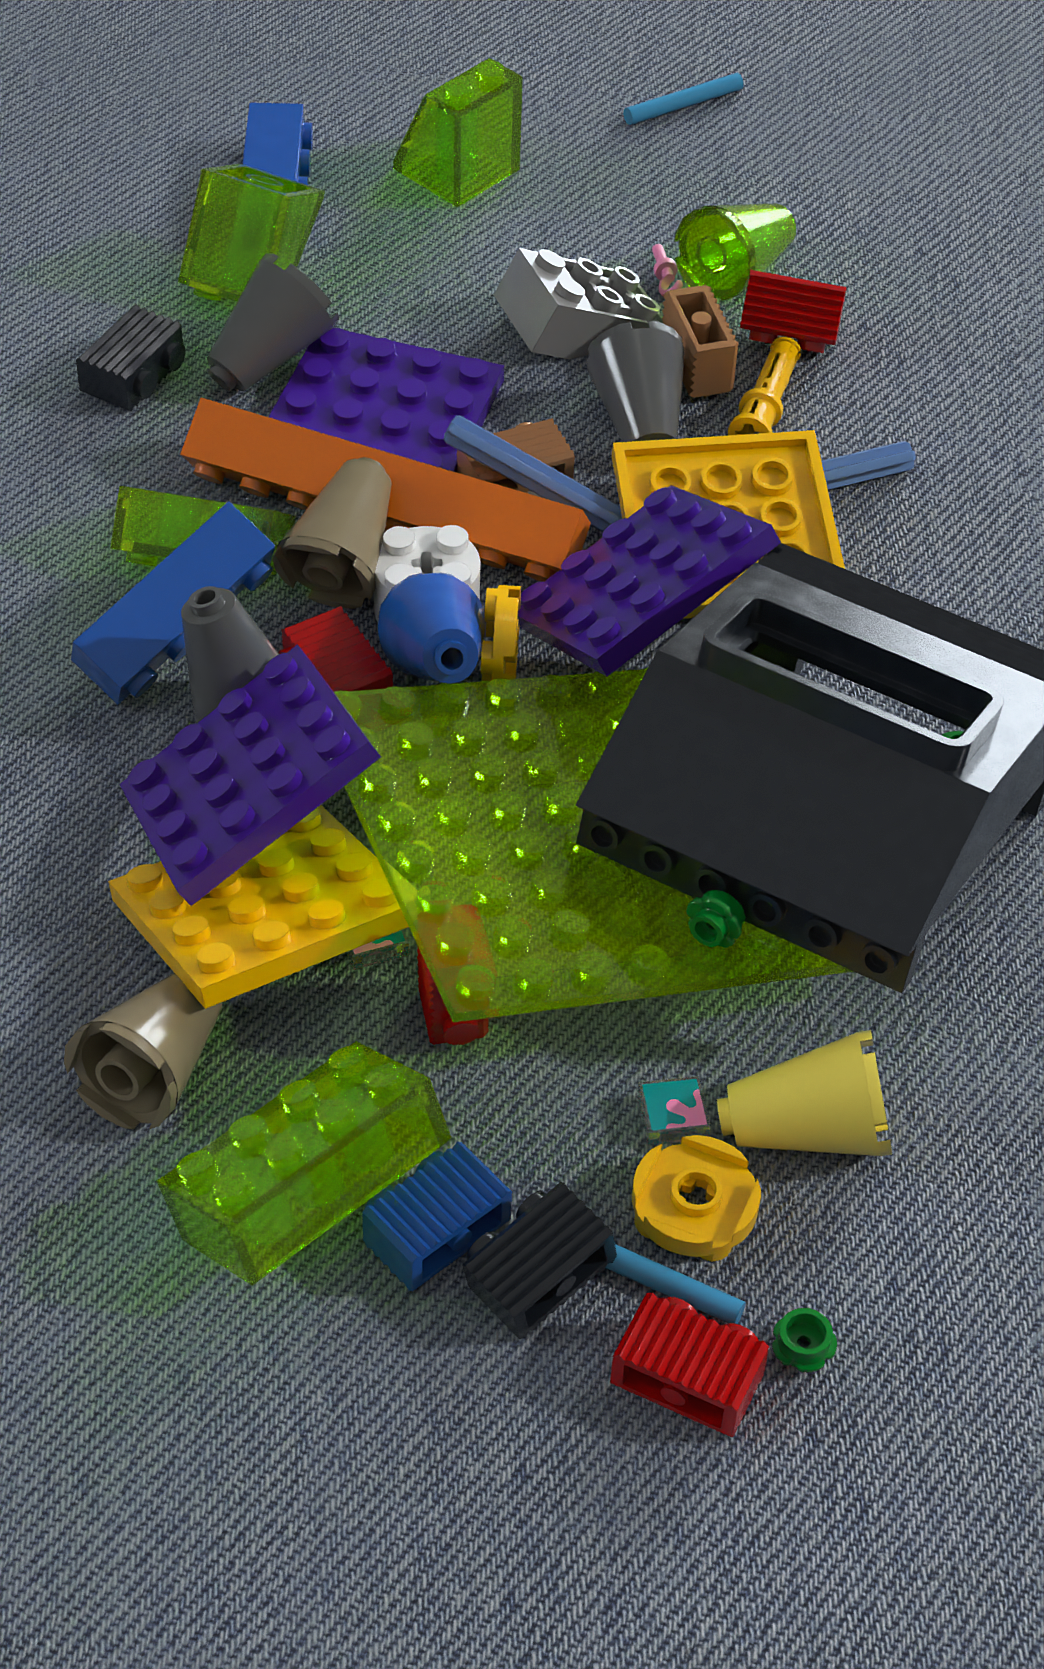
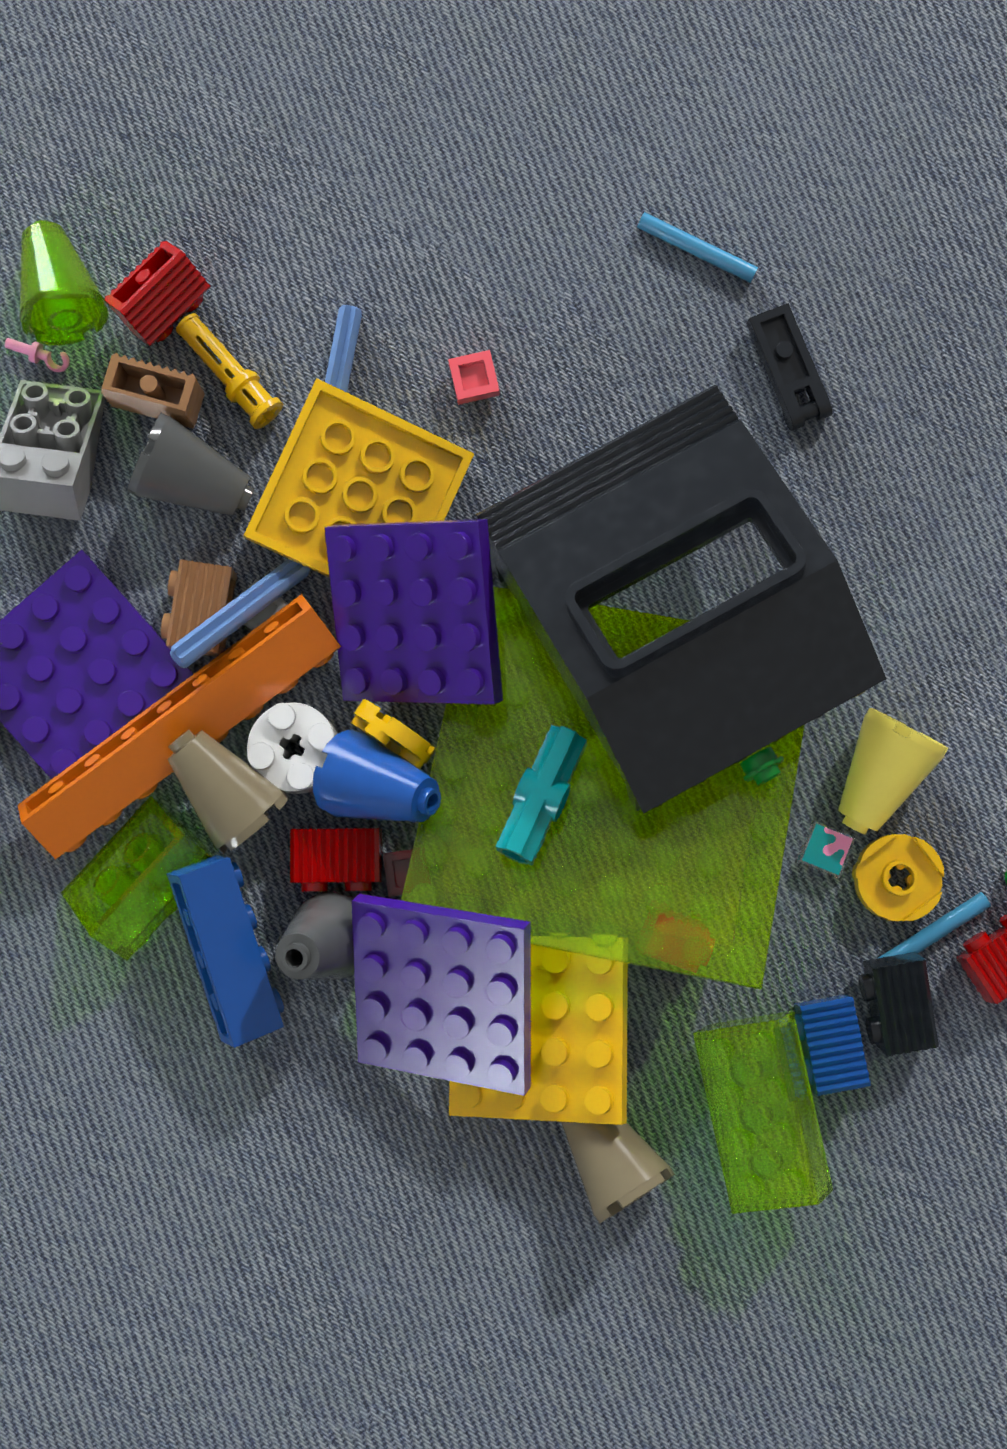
camera: 60 degrees left, 35 degrees up
(523, 744) = (541, 795): none -> teal piece
(928, 566) = (474, 377): none -> coral plate

